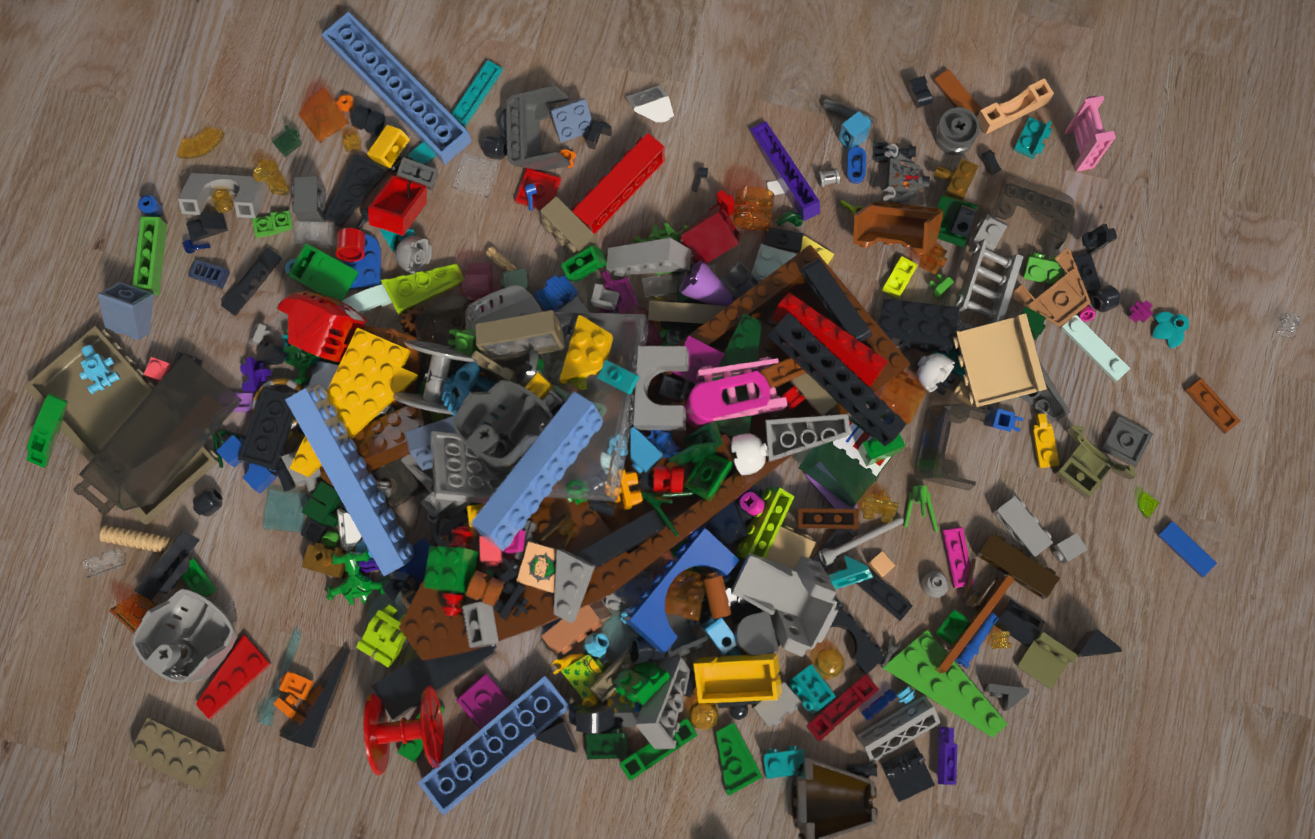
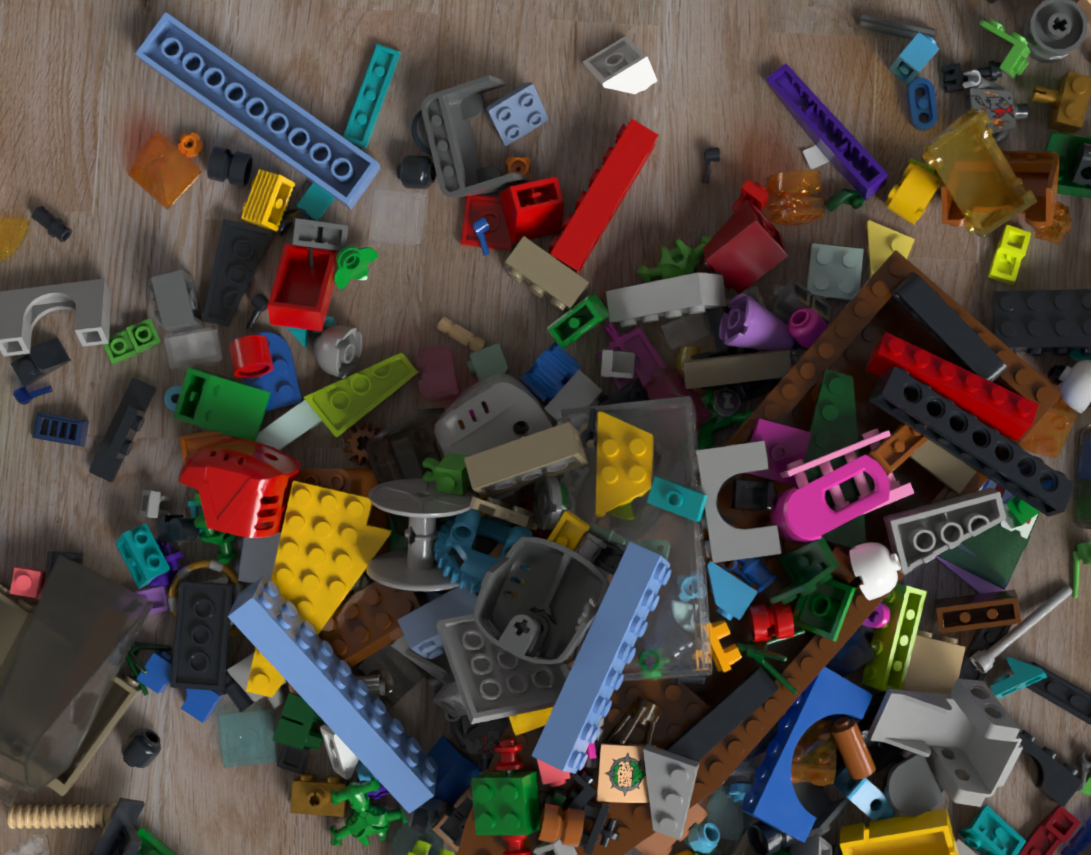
camera: 15 degrees left, 10 degrees up
(222, 201) = (58, 327): clear yellow wheel -> none
(240, 138) = (55, 227): none -> black pin
(241, 365) = (141, 555): none -> teal bracket
(269, 172) = (114, 274): clear yellow plate -> none
(287, 141) = (122, 217): clear green bracket -> none
(330, 538) = (318, 764): bright green hinge -> none
(352, 141) = (214, 201): clear yellow wheel -> none
(437, 200) = (353, 264): none -> green plate
(569, 182) = (533, 209): none -> red slope
(597, 129) = (549, 129): black bracket -> none
(646, 481) = (740, 628): black hinge -> none
(738, 288) = (806, 326): none -> dark pink head
(783, 239) = (841, 230): black plate -> none
(793, 397) = (917, 476): red wheel -> none
(828, 177) = (894, 123): light grey bush -> none
(829, 663) = (1009, 800): clear yellow hair -> none
(837, 221) = (914, 194): none -> yellow brick
(879, 207) = (977, 174): none -> clear yellow windscreen
(879, 504) = (1038, 575): clear yellow hips -> none
(881, 564) = (1053, 655): light nougat slope -> none
(926, 142) = (1016, 59): none -> bright green bracket
(942, 287) = (1070, 259): bright green tile -> none

